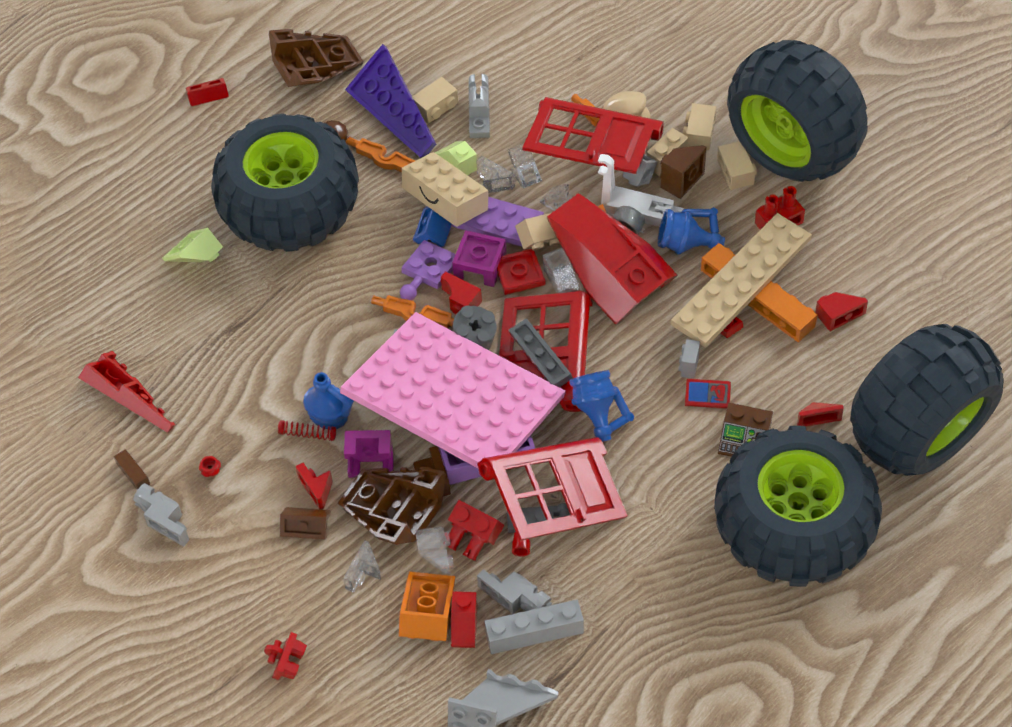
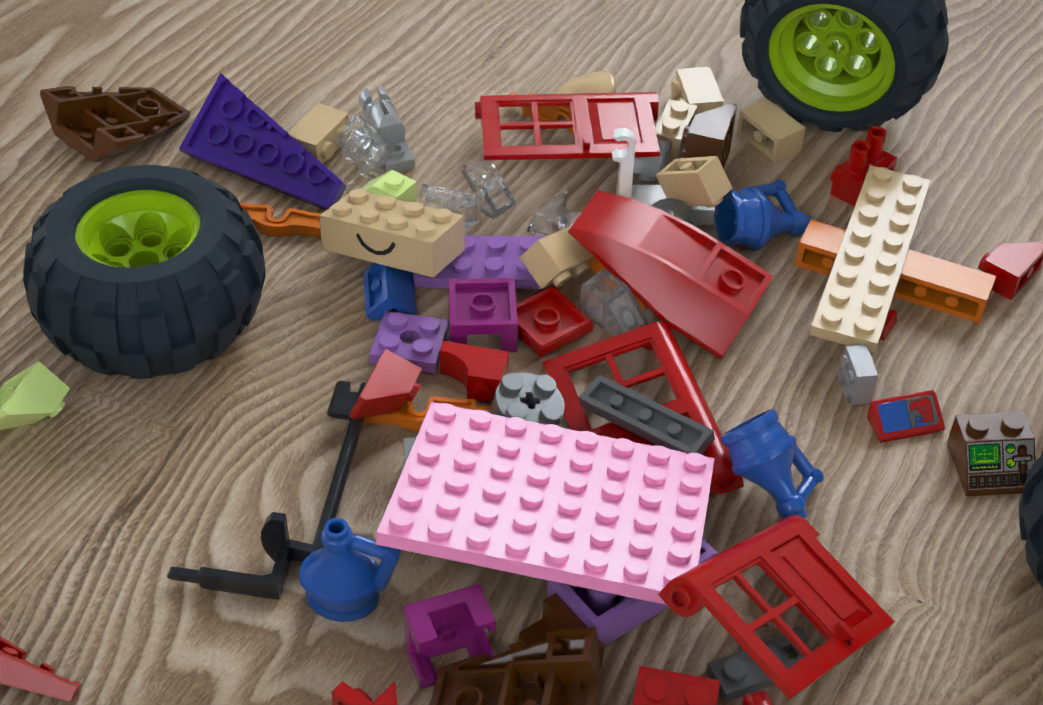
camera: 25 degrees left, 10 degrees down
(281, 426) = (276, 642): red piece -> none
(373, 298) = (275, 529): none -> black piece
(398, 294) = (387, 387): none -> slope
(457, 118) = (364, 147): none -> clear bracket
(648, 199) = (695, 181): none -> tan brick

